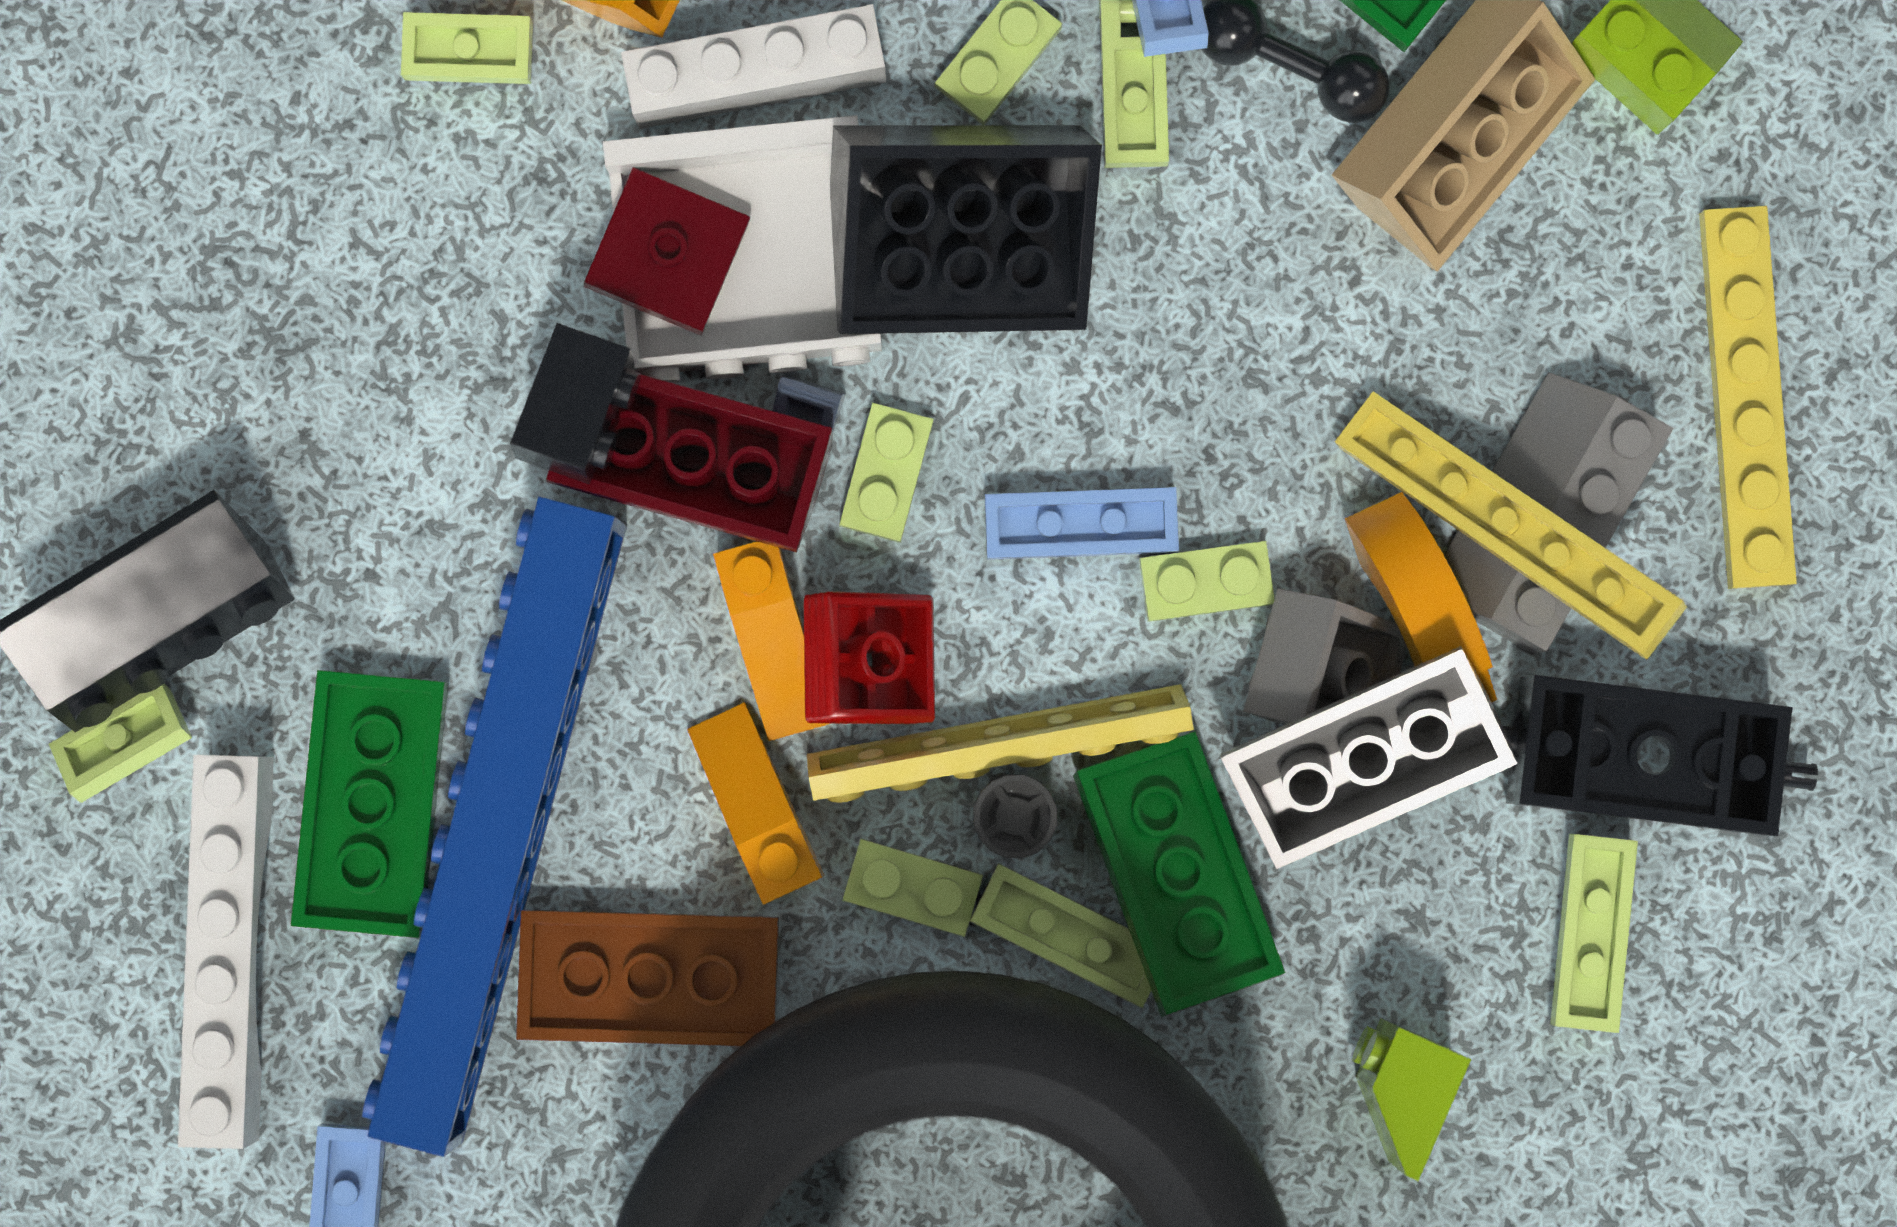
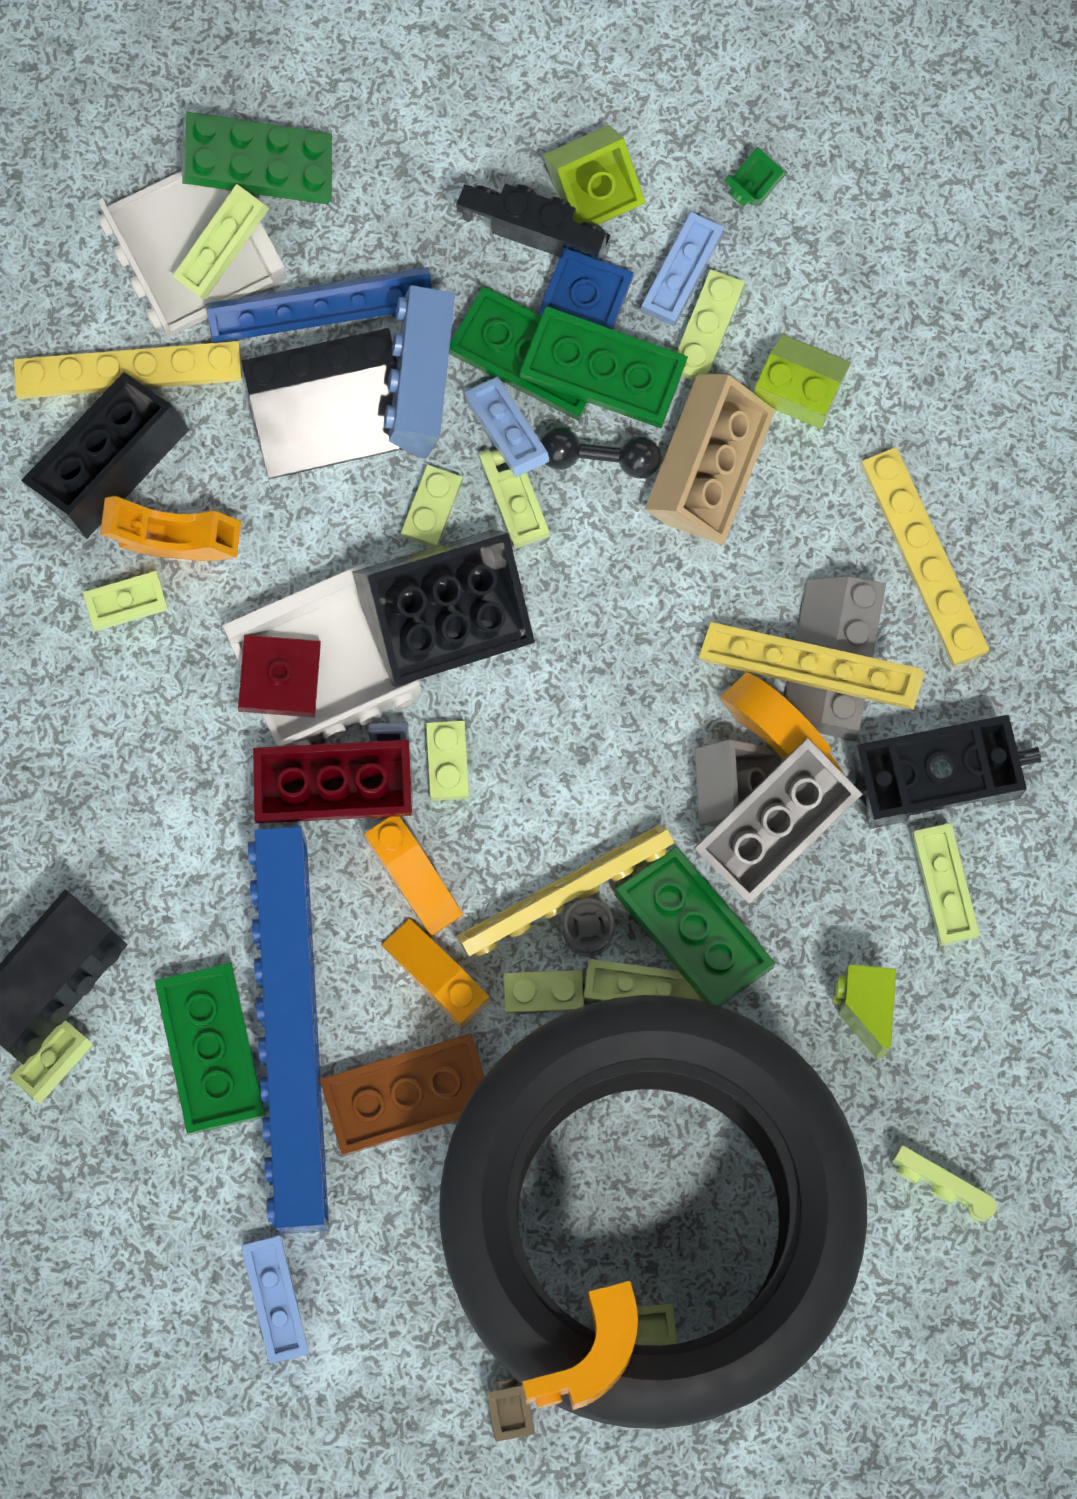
camera: 15 degrees left, 10 degrees down
(219, 1008) = (153, 1160): white arch -> none
(574, 404) = (258, 772): black piece -> none
(754, 66) = (295, 556): white brick -> none
(838, 637) = (474, 864): red brick -> none
(1081, 523) = (569, 751): light blue plate -> none
(1206, 581) = (653, 760): yellowish green plate -> none

